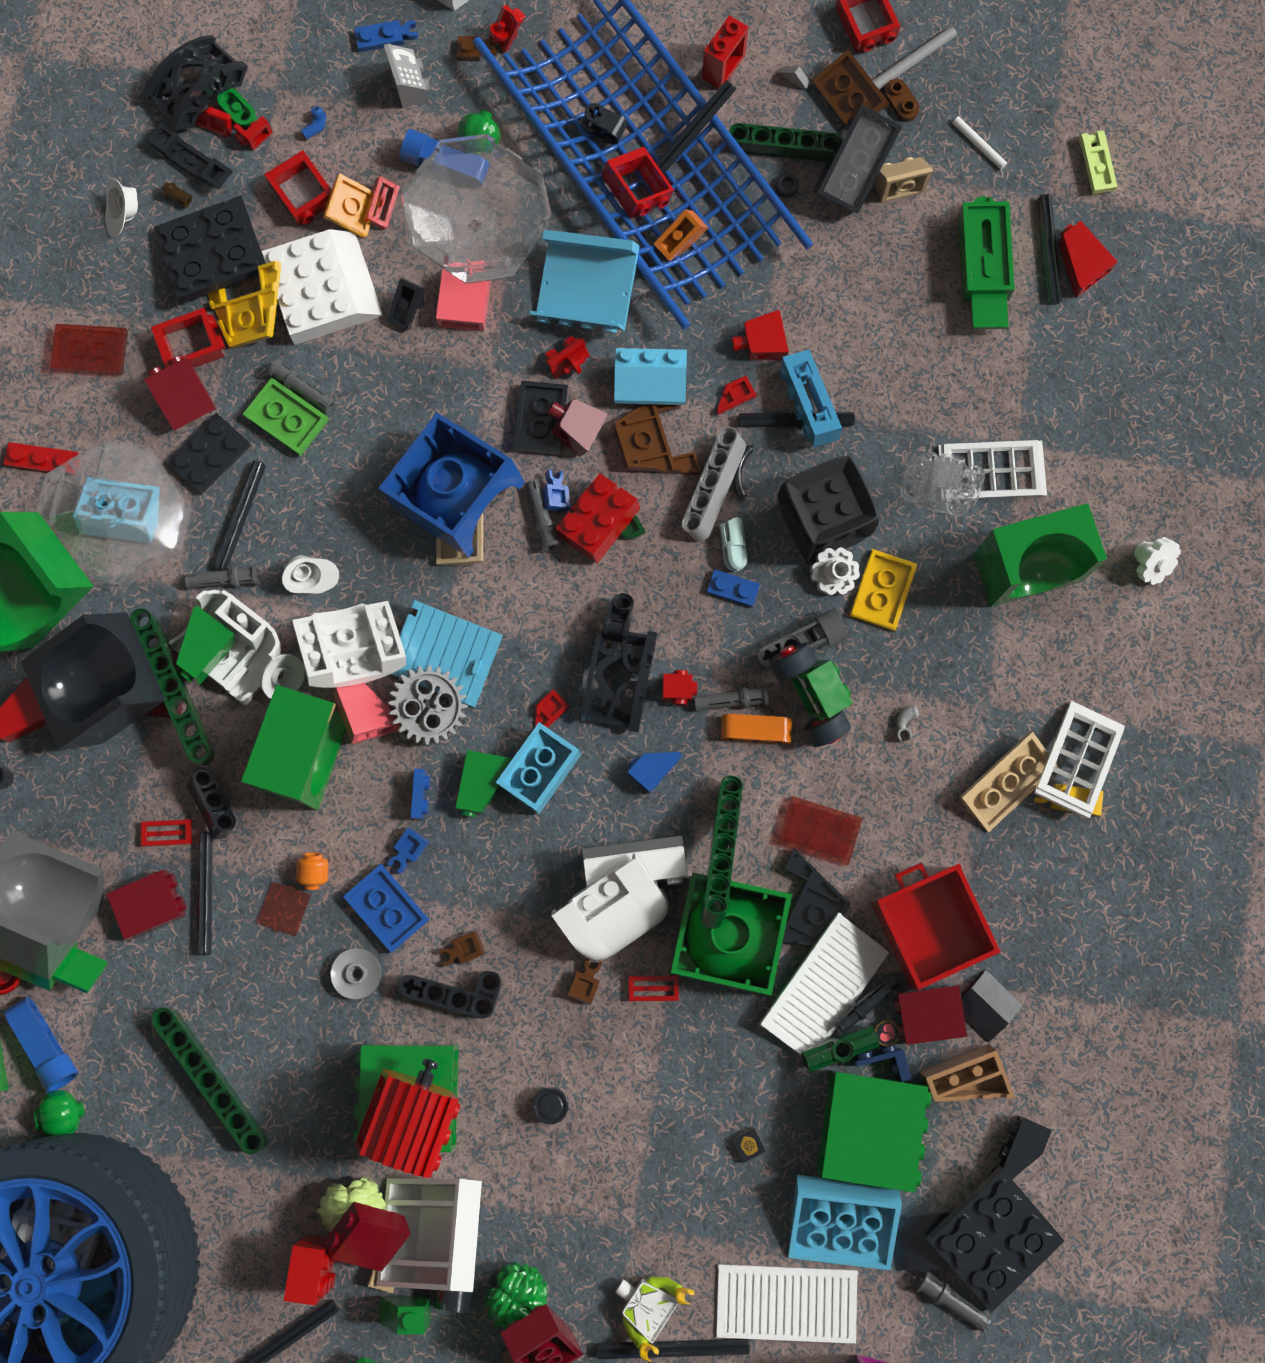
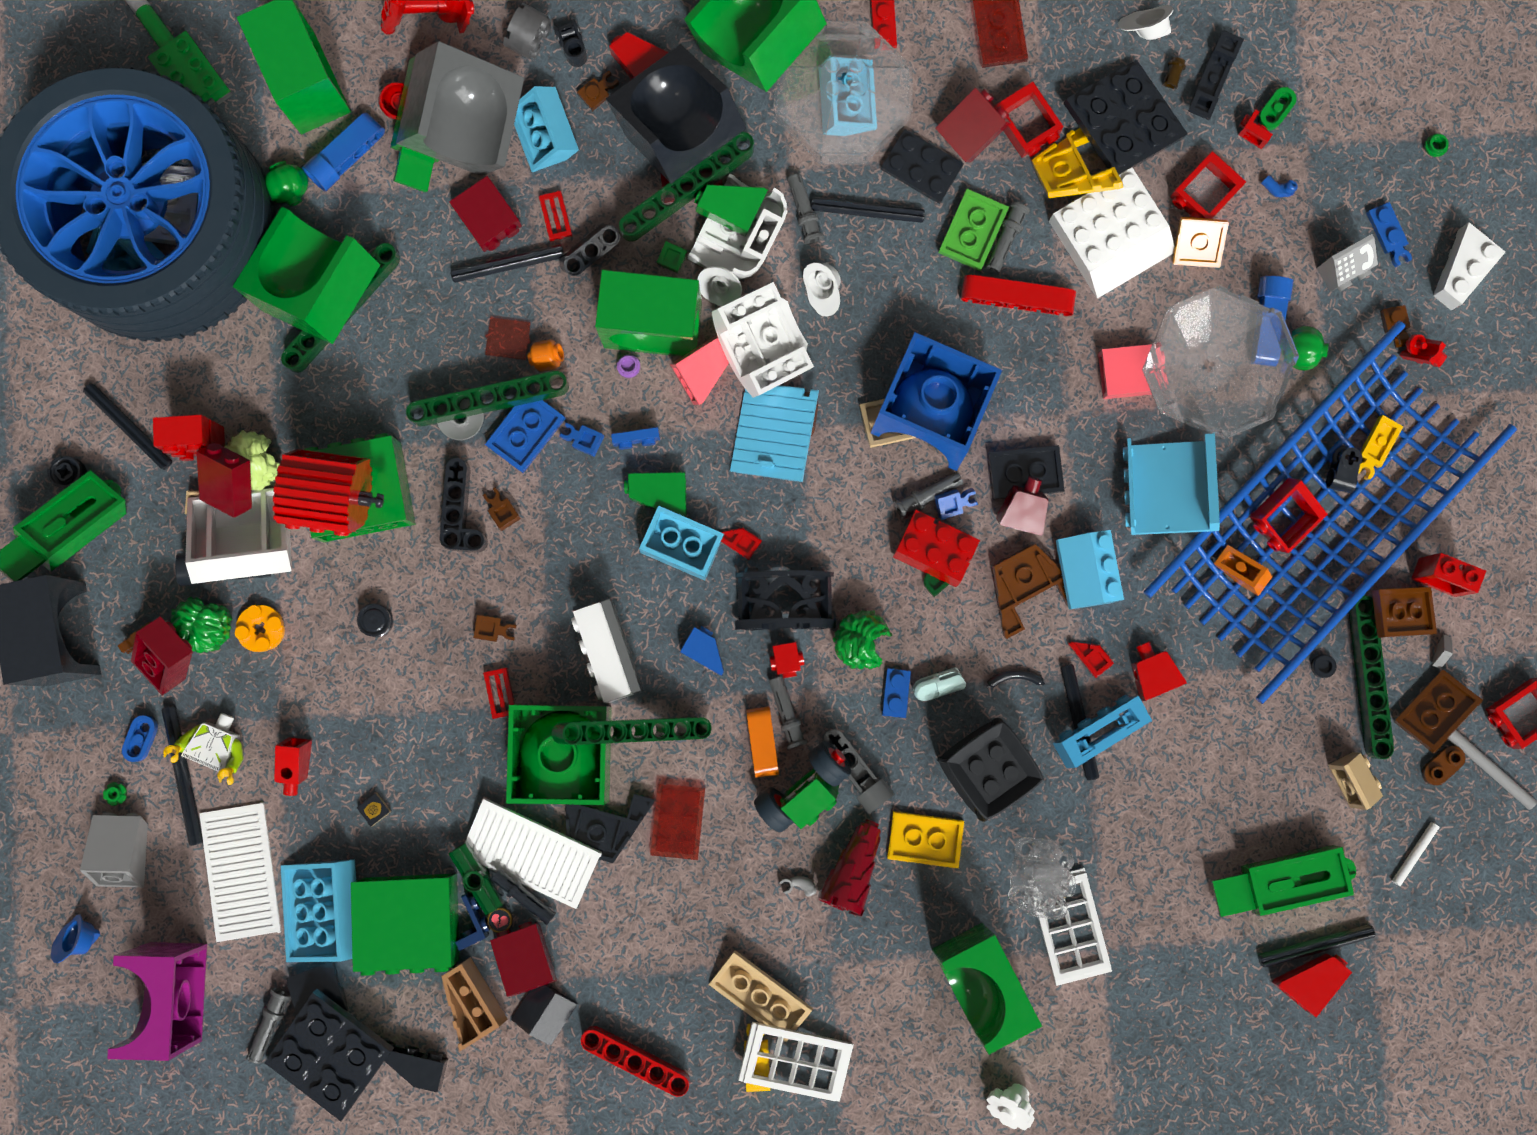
camera: 75 degrees right, 5 degrees up
(46, 765) = (595, 92): none -> reddish brown plate
(72, 824) = (544, 128): none -> medium azure slope
(168, 1106) = (306, 276): none -> green piece
(215, 121) = (1258, 89): red tile -> none
(216, 77) = (1292, 33): black fence -> none
(240, 721) = (672, 257): none -> green plate
(343, 788) = (628, 366): none -> medium lavender plate
(349, 950) = (477, 394): none -> dark green beam
(361, 387) = (1018, 294): none -> red beam
(373, 200) = (1208, 278): tile -> none
(405, 304) = (1110, 316): black slope -> none
(405, 1314) = (167, 529): green slope -> none
(409, 692) = (727, 405): light grey gear -> none
(548, 1232) = (263, 641): none -> light orange plate
(569, 358) = (1090, 486): red hips -> none
(586, 87) = (1378, 444): none -> yellow plate
(612, 911) = (557, 639): white piece -> none
(619, 616) = (839, 588): black piece -> none
(672, 612) = (855, 639): none -> green hair
(675, 1221) = (292, 763): none -> red torso
(695, 126) = (1360, 561): black axle -> none
(713, 484) = (1006, 650): light grey beam -> none
(752, 100) = (1404, 612): none -> reddish brown plate
(834, 571) = (933, 788): white plant -> none
(857, 158) = (1363, 731): clear brick -> none
(910, 669) = (850, 879): none -> dark red cone
(935, 926) = (606, 948): red container -> none
(1063, 915) = (642, 1071): none -> red beam
(1098, 162) = (1422, 980): yellowish green plate -> none

